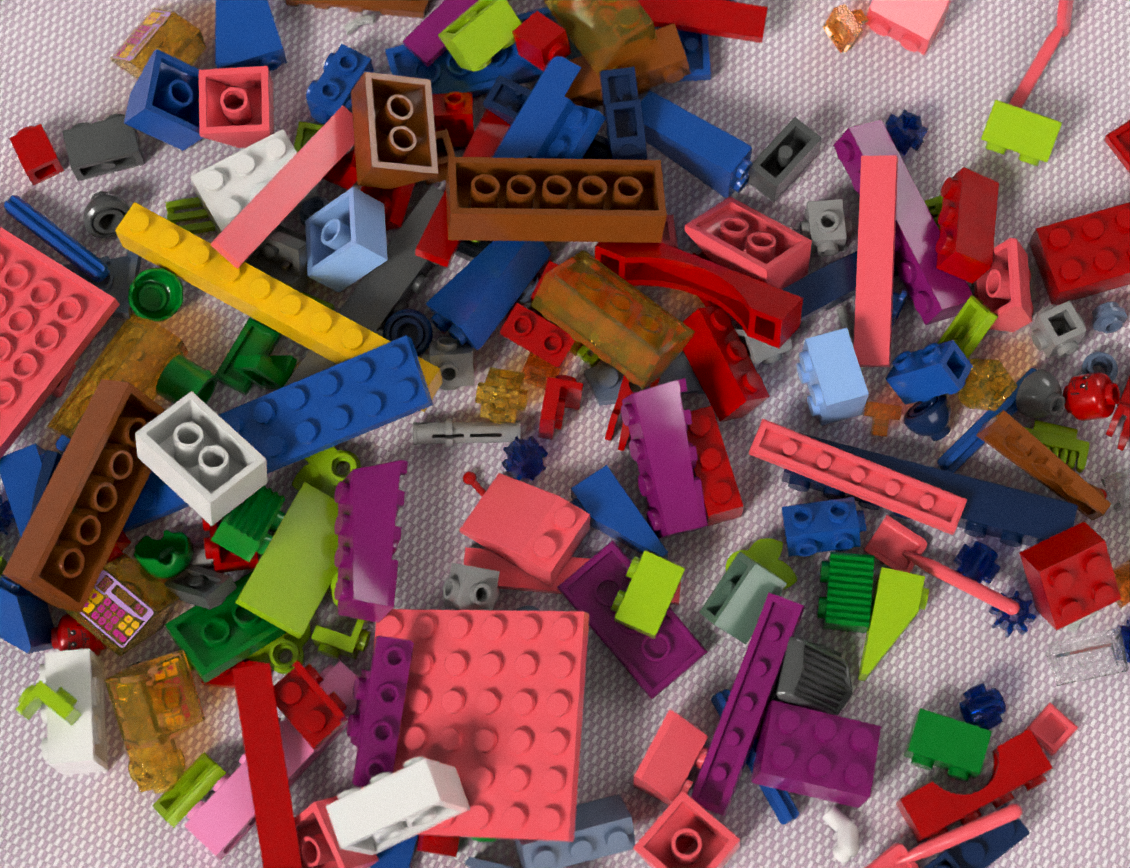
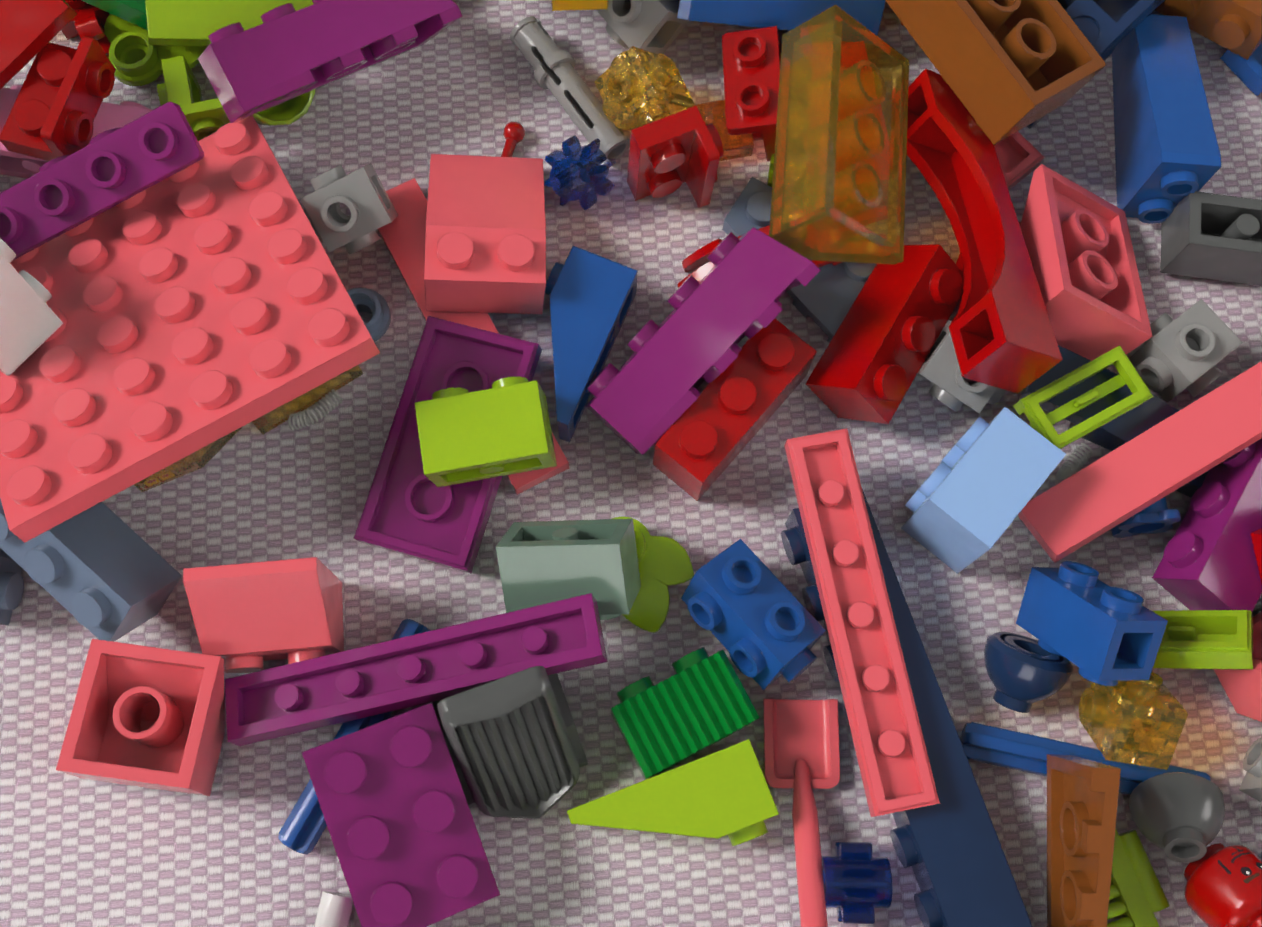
camera: 50 degrees right, 0 degrees up
(820, 325) = (1044, 422): none -> lime tile
(880, 416) = (977, 596): clear orange tile -> none

